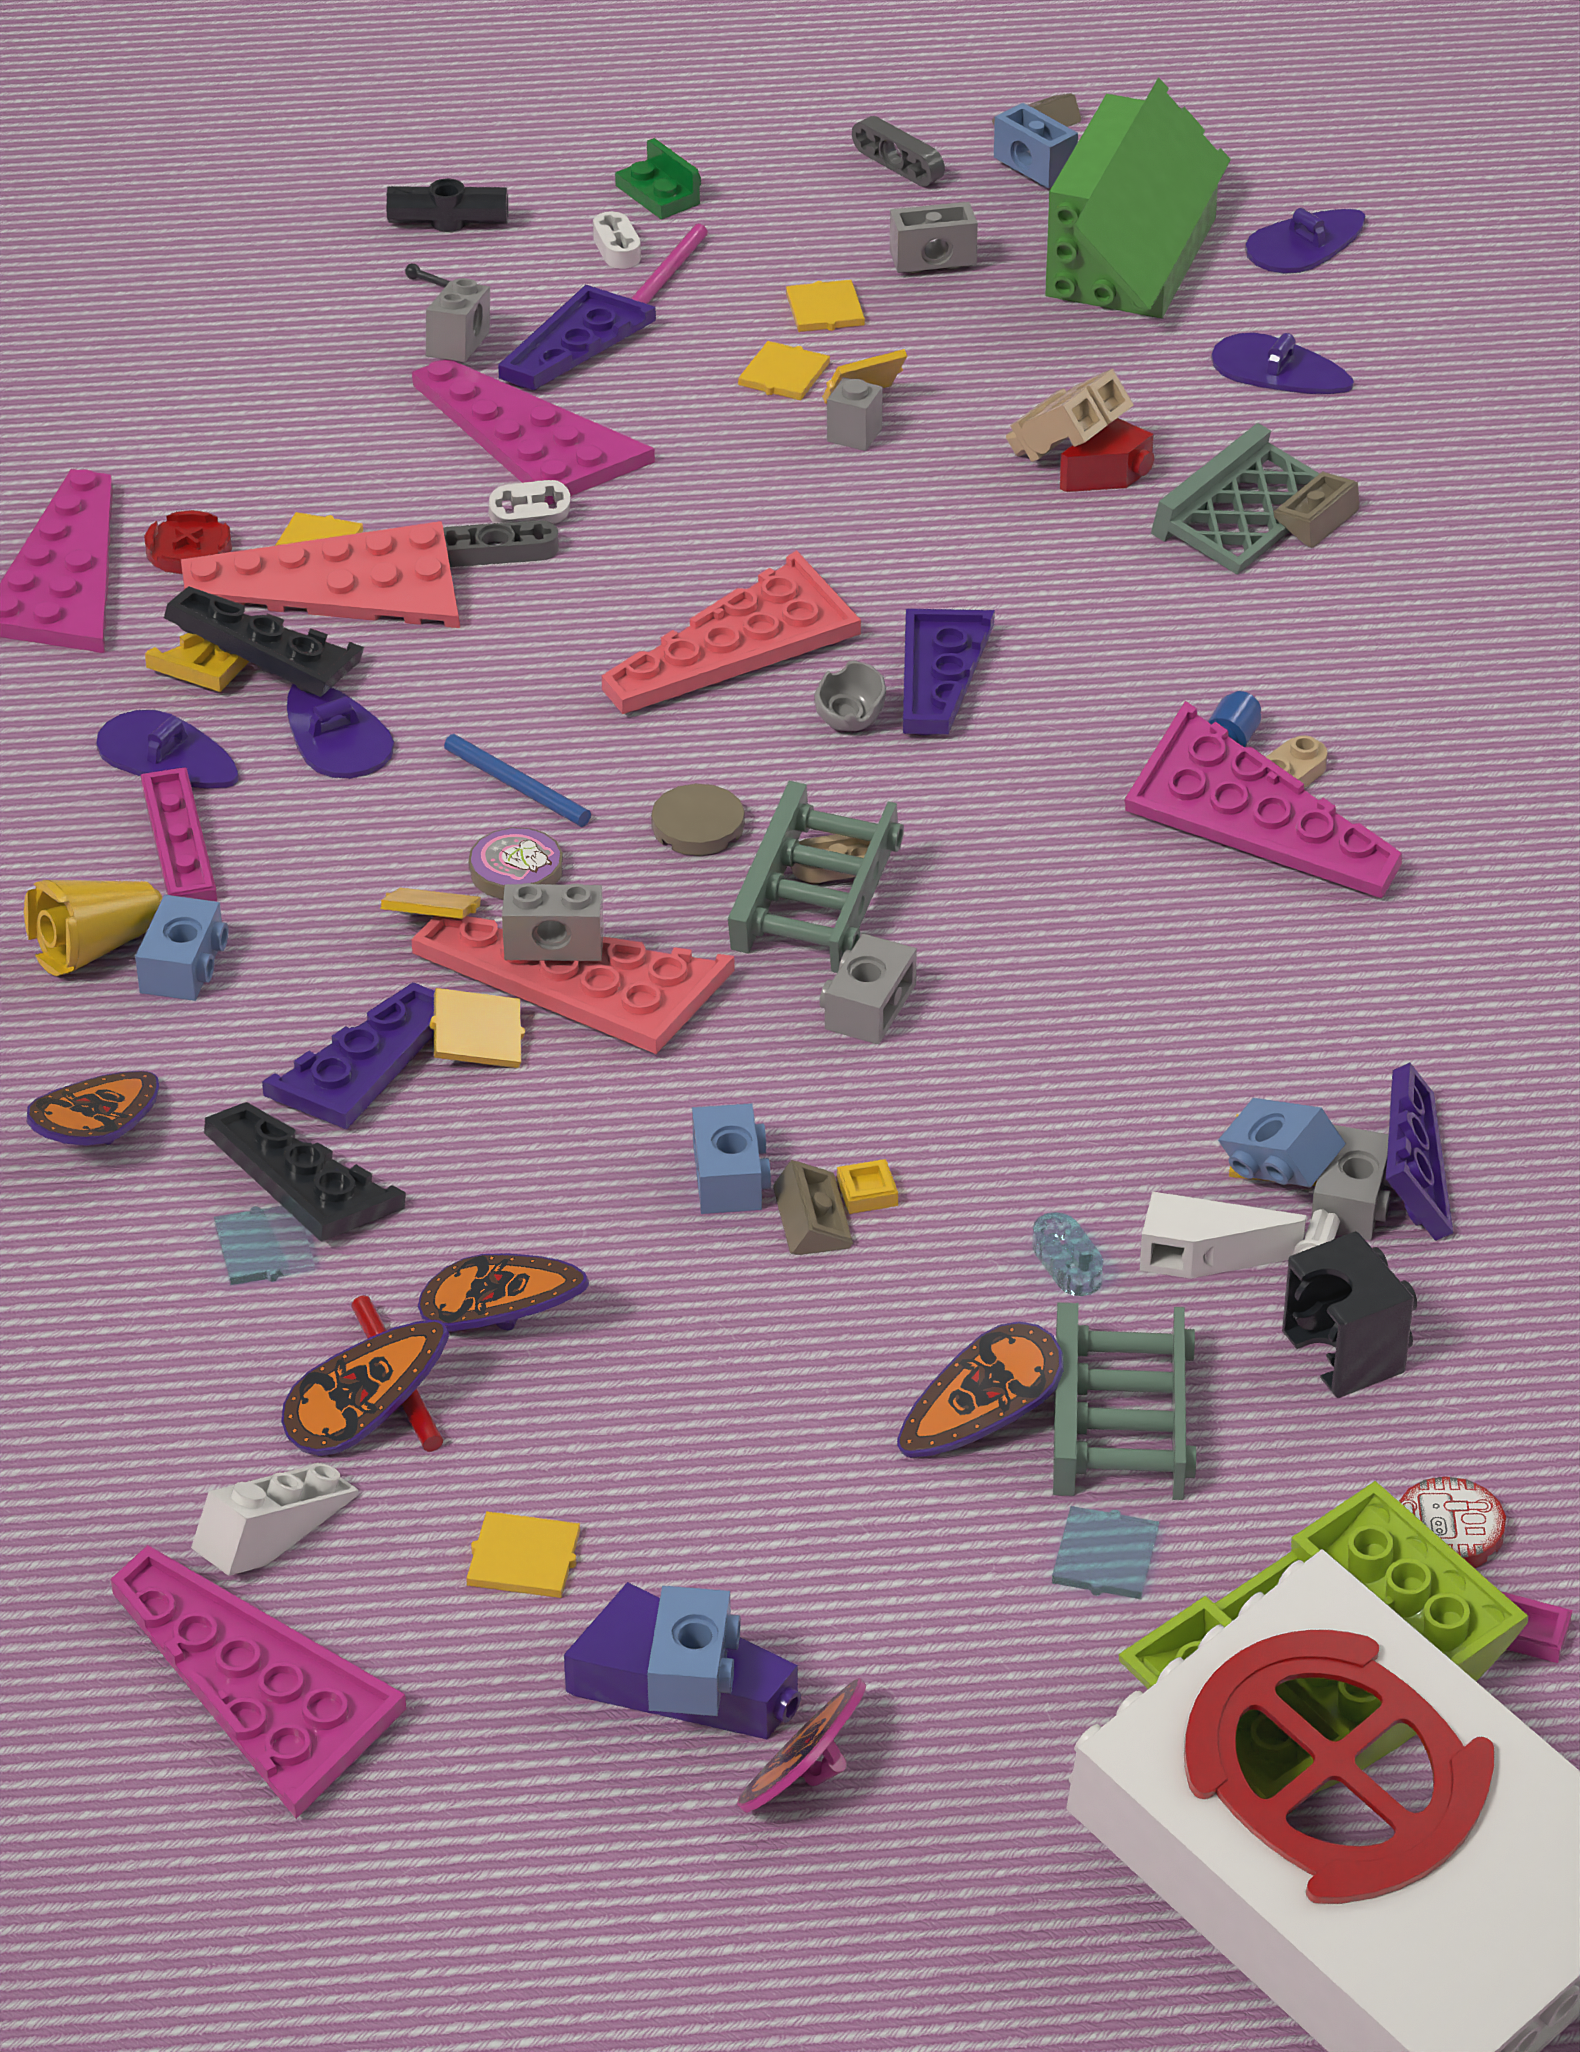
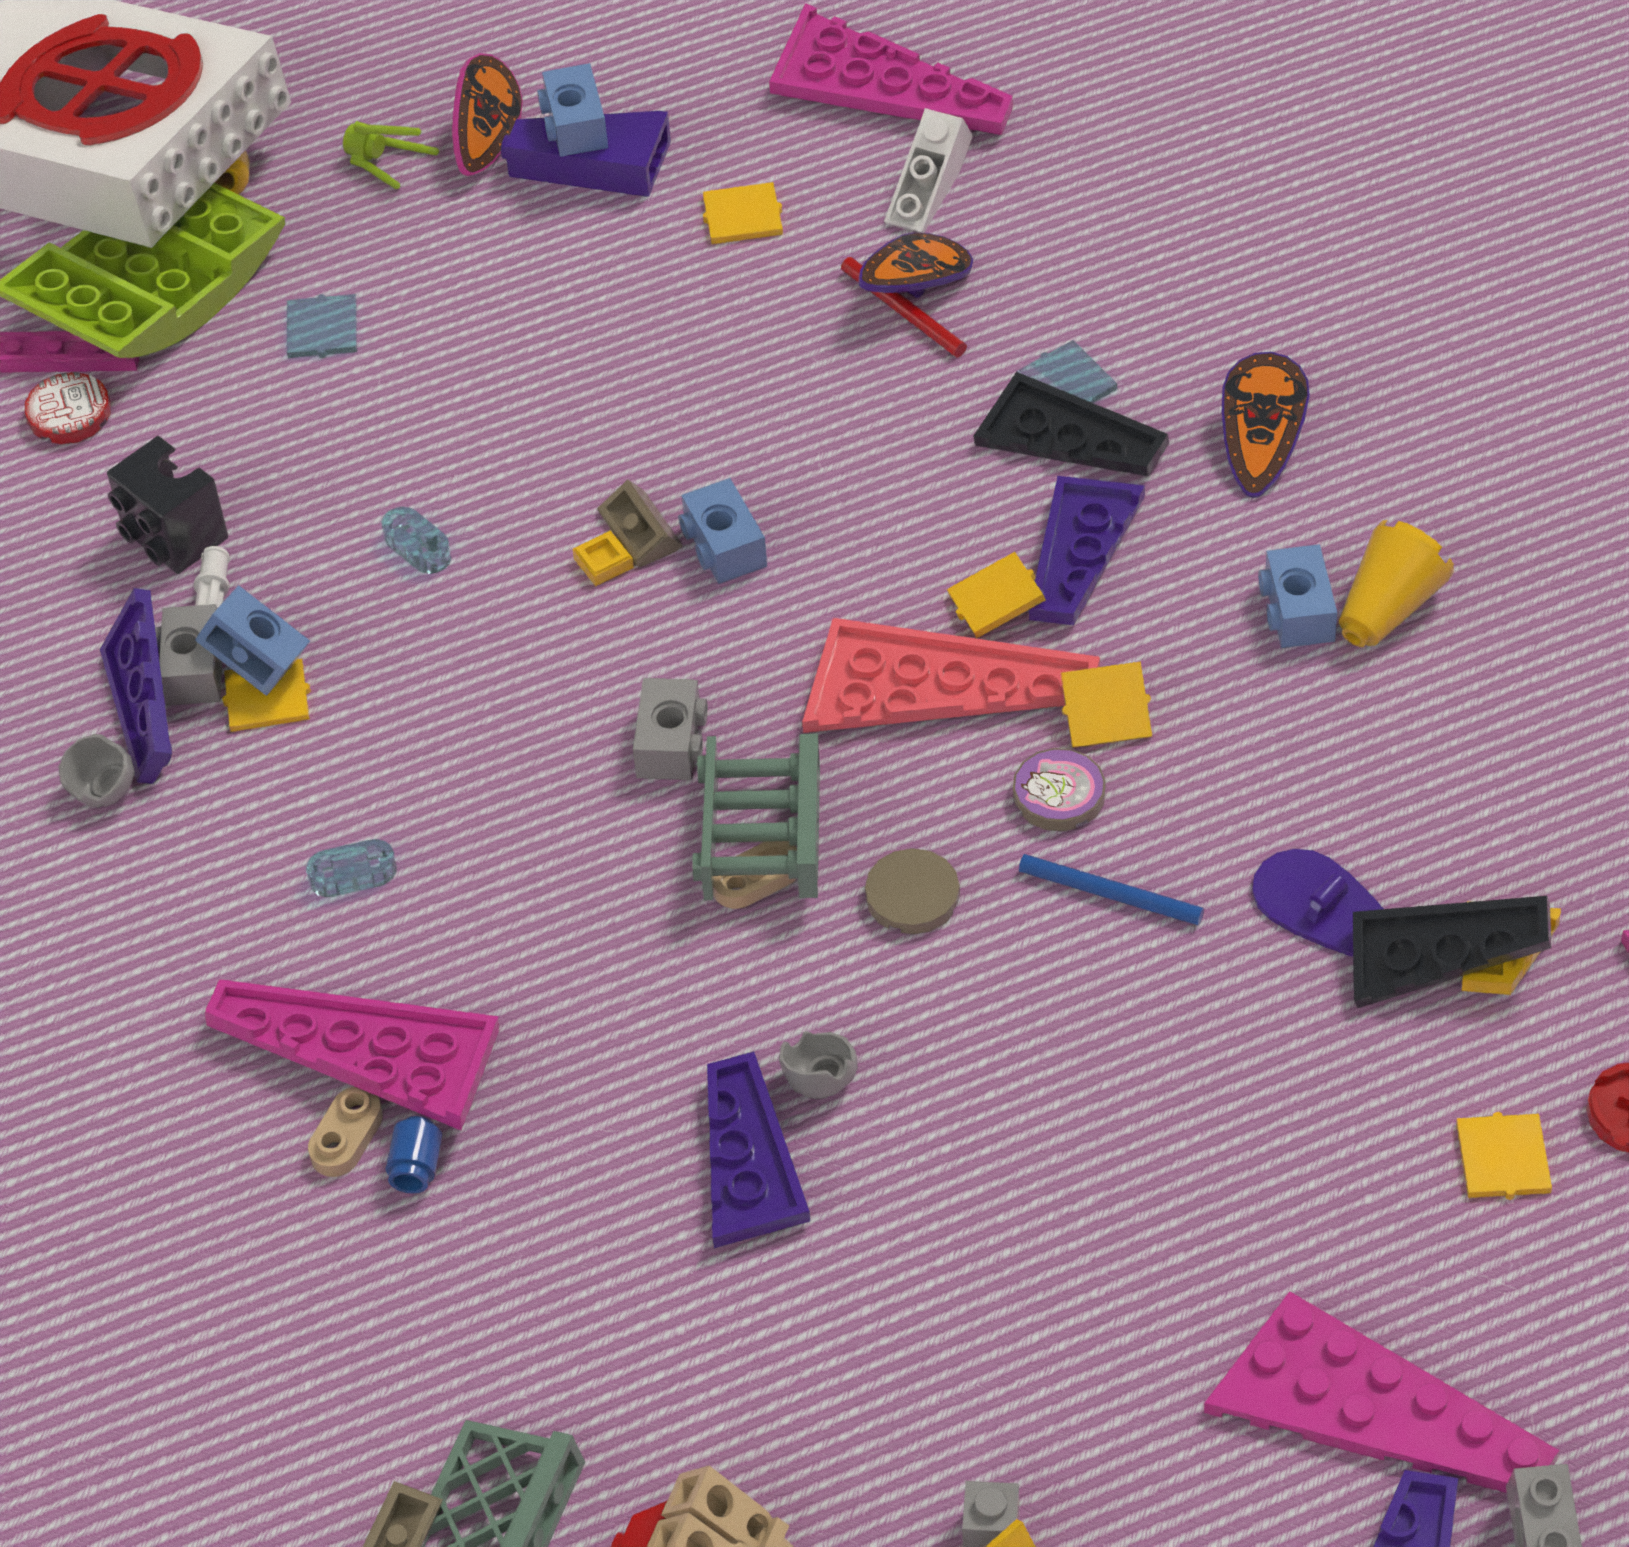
camera: 165 degrees right, 10 degrees up
(159, 742) = (1473, 832): dark purple shield -> none
(178, 834) = (1388, 726): dark pink tile -> none
(340, 576) = (1417, 1098): coral wing -> none
(498, 1290) = (852, 363): shield -> none
(522, 543) = (1318, 1184): dark grey beam -> none
(530, 502) = (1296, 1260): white beam -> none
(553, 922) = (969, 669): light grey brick -> none
(740, 633) = (962, 1151): coral wing -> none
(973, 1773) = (366, 142): none -> lime plant
(983, 1389) = (441, 385): shield -> none
(1075, 1417) = (375, 425): sand green fence -> none
(1213, 1237) = (300, 571): white slope -> none
(1228, 962) = (351, 868): none -> clear light blue beam
(1473, 1088) = (96, 771): none -> light grey hair

